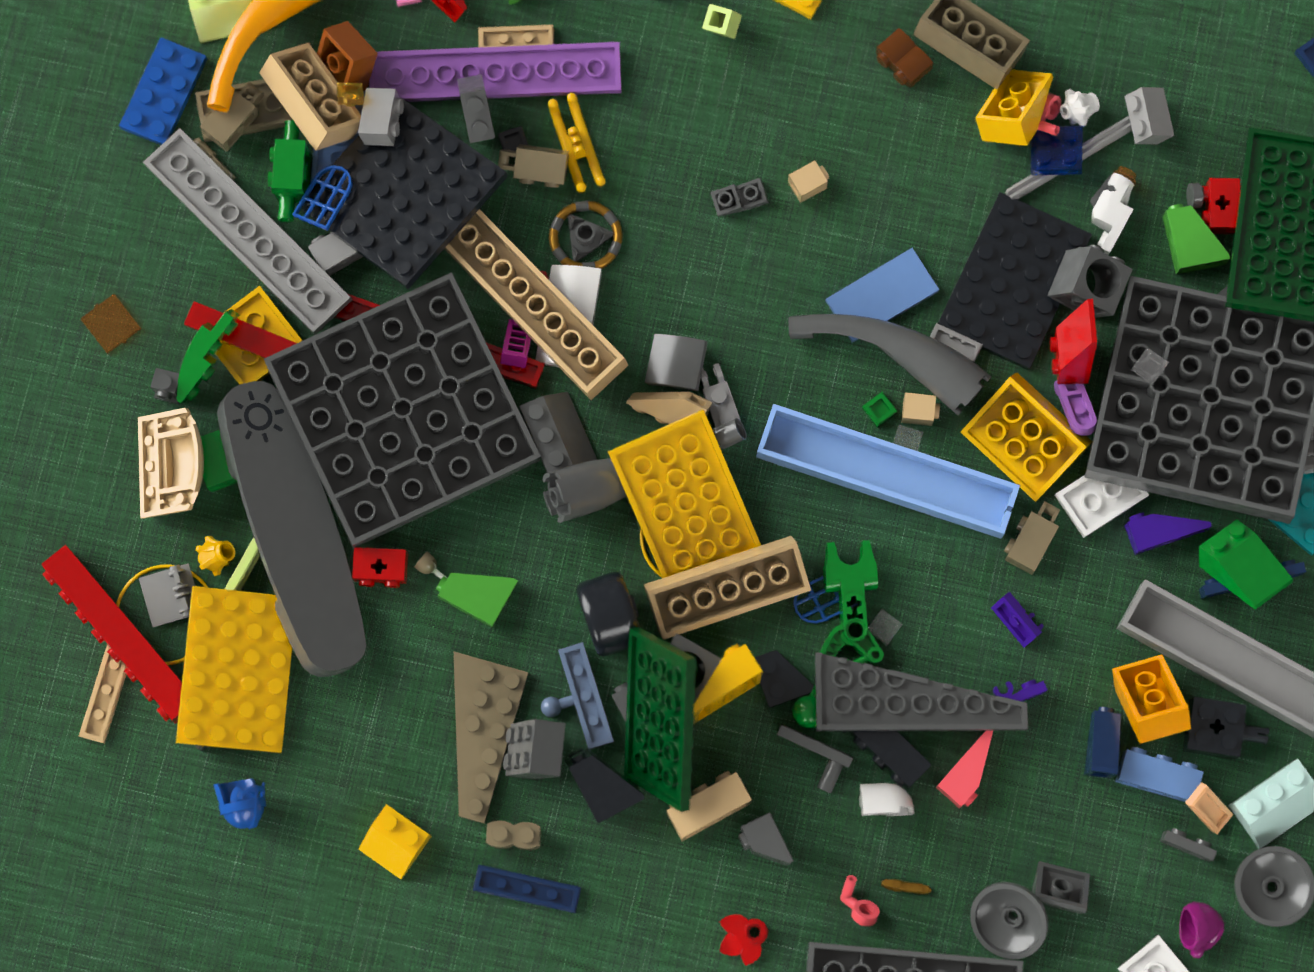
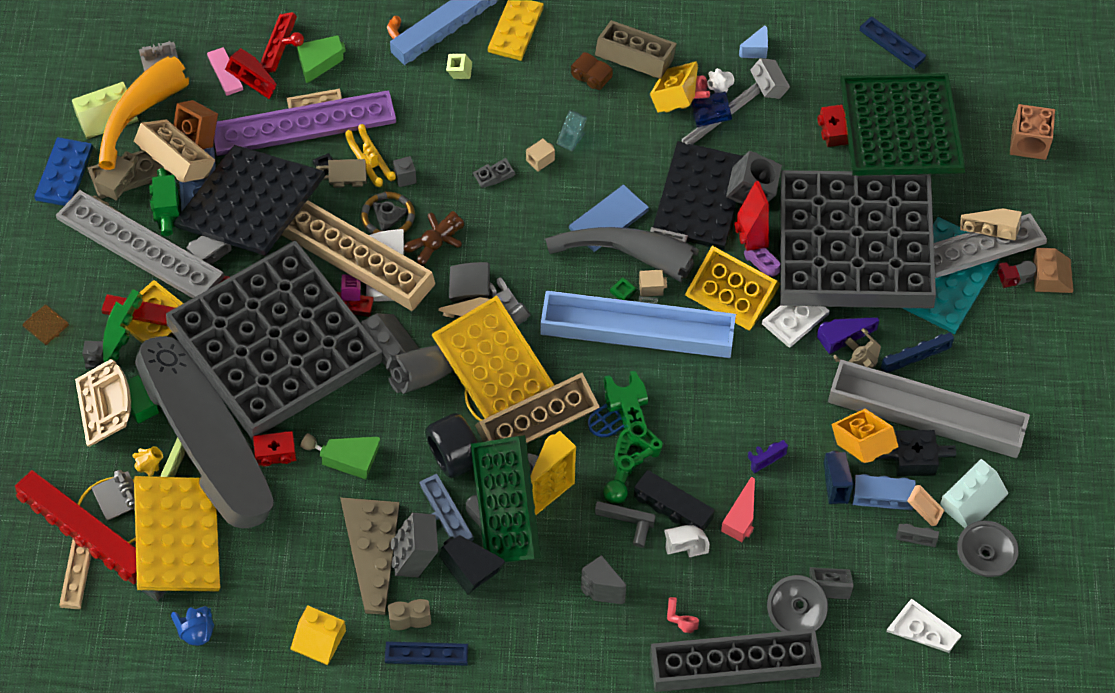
camera: 15 degrees left, 20 degrees down
(323, 185) = (191, 204): blue window -> none
(350, 94) = (202, 142): clear yellow plate -> none
(380, 116) = (226, 154): light grey brick -> none
(475, 108) = (294, 139): dark grey brick -> none
(618, 176) = (404, 171): none -> dark grey brick
(640, 288) = (433, 238): none -> reddish brown animal
(710, 805) = (554, 566): tan brick -> none
(739, 940) = (596, 660): red plate -> none
(781, 680) = (590, 477): black wing -> none
(857, 151) = (572, 130): none -> clear light blue slope
(878, 699) = (674, 469): dark grey wing -> none
(884, 627) = (660, 428): clear tile -> none
(910, 887) = (709, 602): pearl gold piece -> none
(1016, 619) = (754, 406): dark purple plate -> none
(1033, 539) = (753, 353): dark tan brick -> none
(1111, 206) = (757, 134): white plate -> none
(1142, 56) = (756, 45): none -> light blue slope
(1150, 366) = (809, 220): clear tile -> none
(1177, 575) = (863, 355): none -> dark tan piece
(1191, 241) = (819, 150): bright green slope -> none
(1194, 195) = (813, 122): dark grey tile -> none
(1200, 928) = (940, 587): magenta piece -> none
(1243, 564) = (907, 338): green slope -> none

